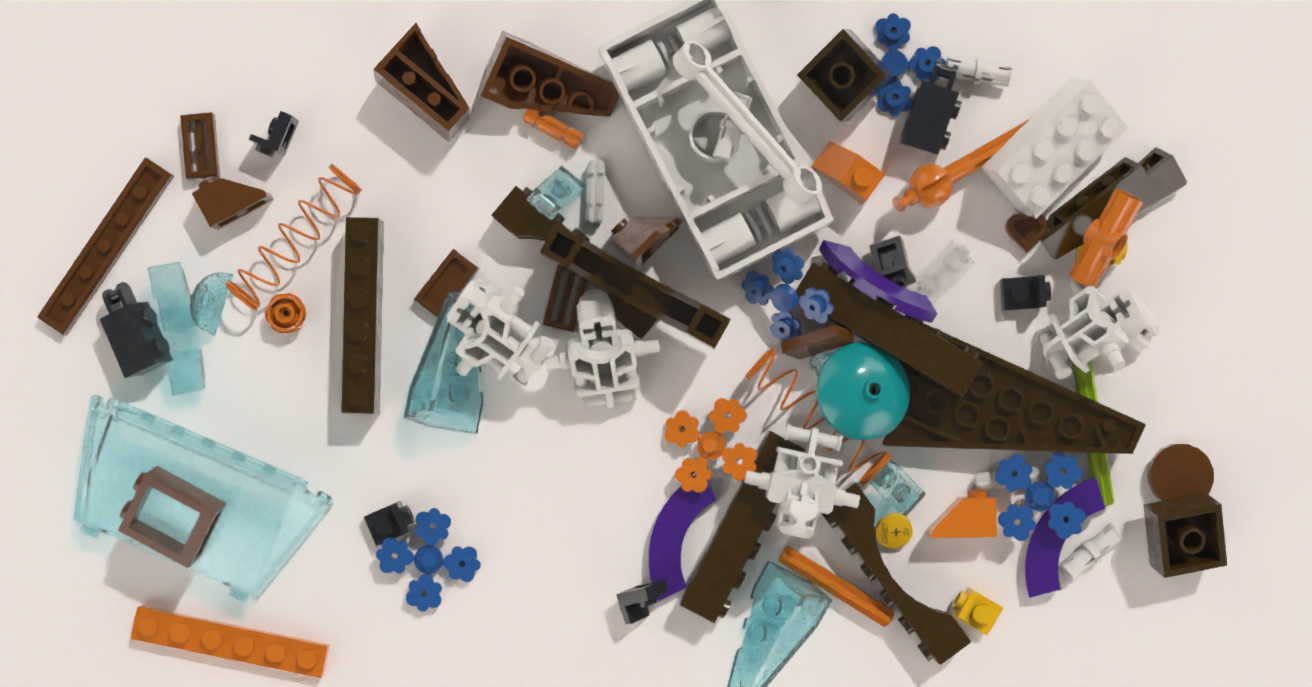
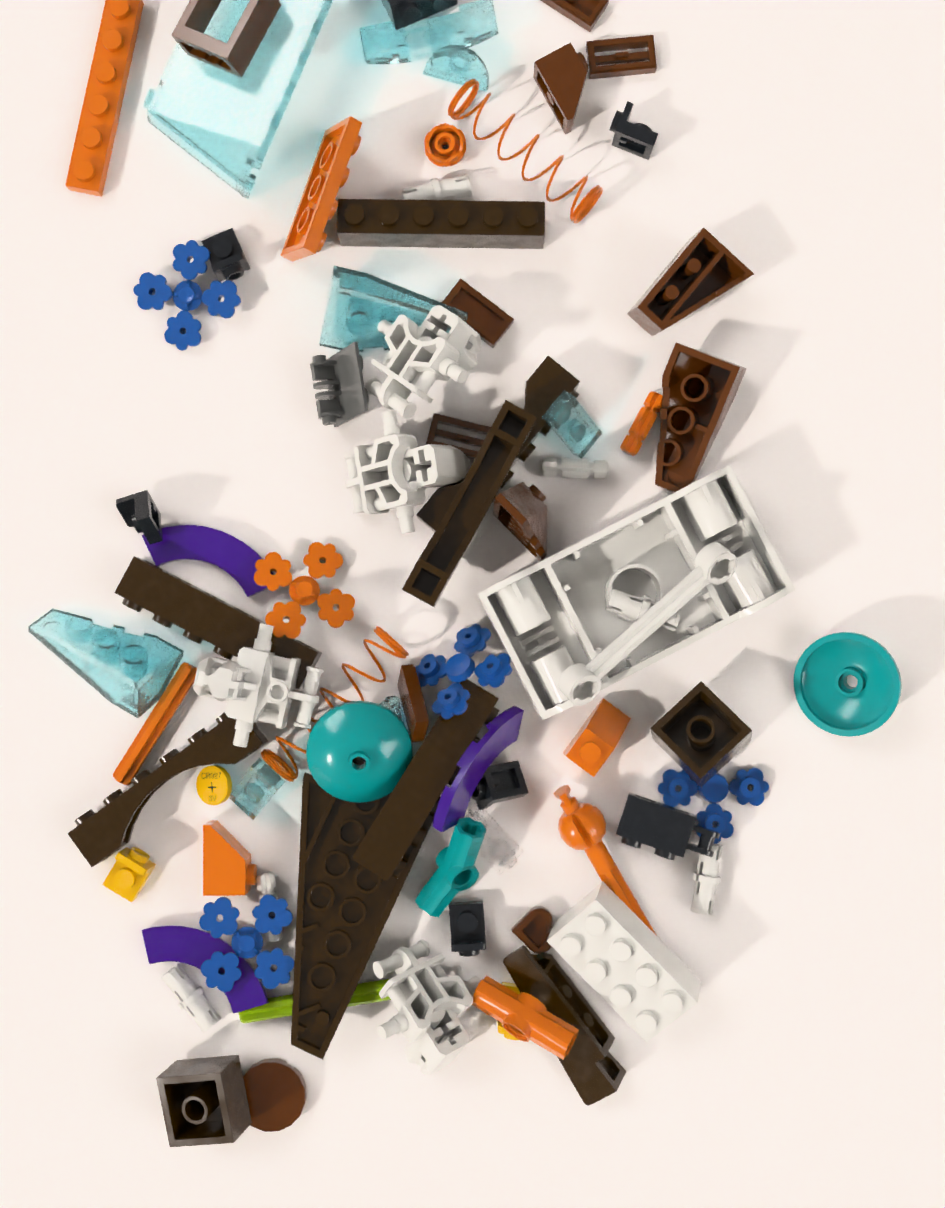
camera: 95 degrees right, 0 degrees up
(329, 320) = (440, 190): none -> white pin
(331, 429) = (321, 189): none -> orange plate
(518, 407) = (345, 385): none -> dark grey hinge
(970, 303) = (455, 867): none -> teal piece

